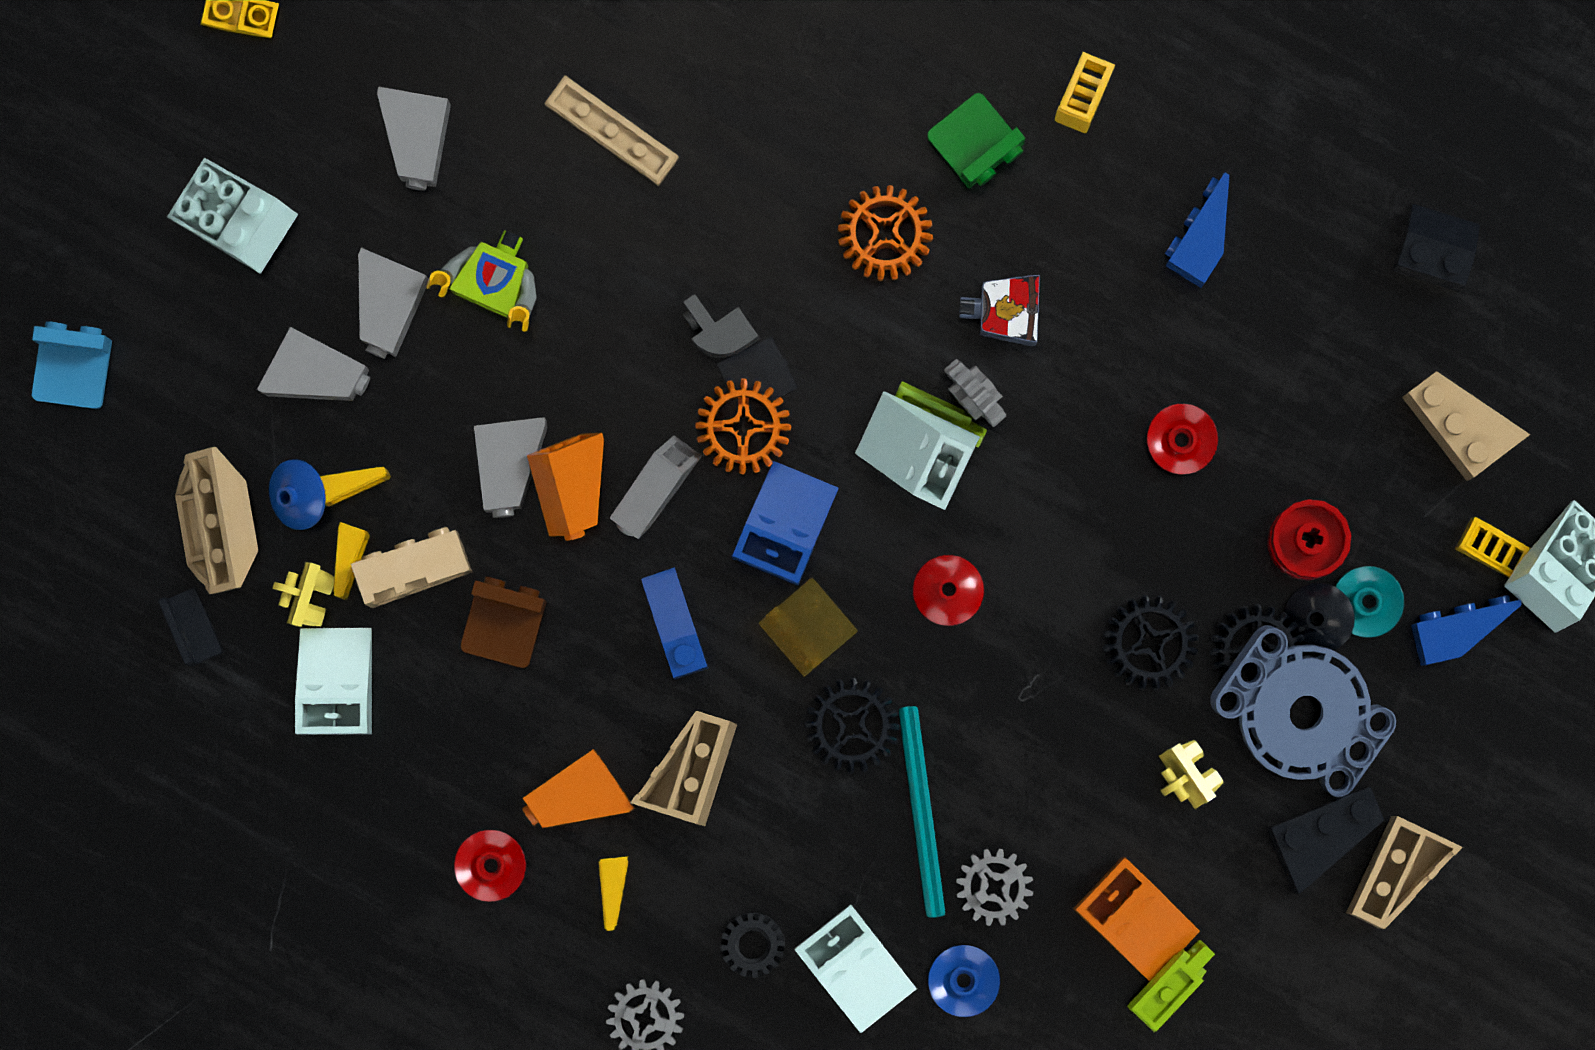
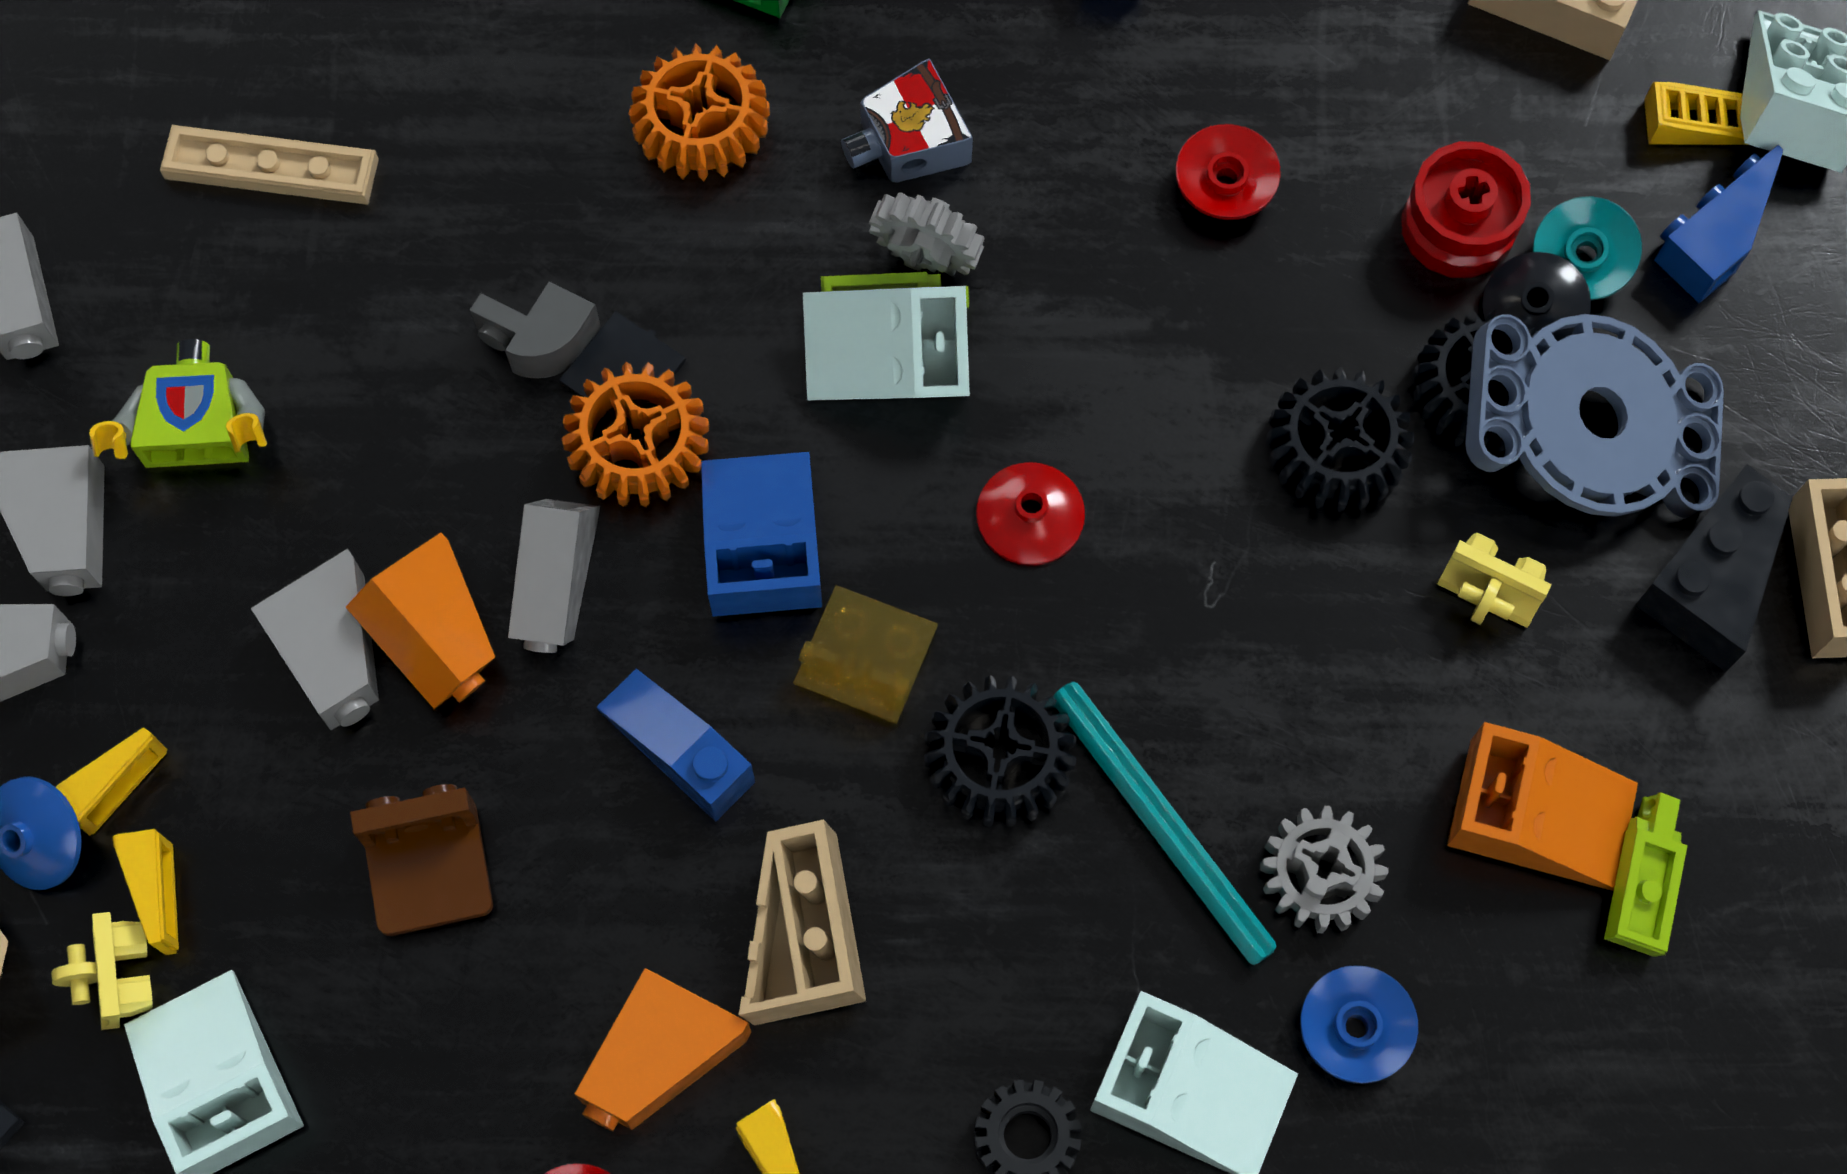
camera: 30 degrees left, 15 degrees down
(411, 567) = (249, 852): tan wedge -> none

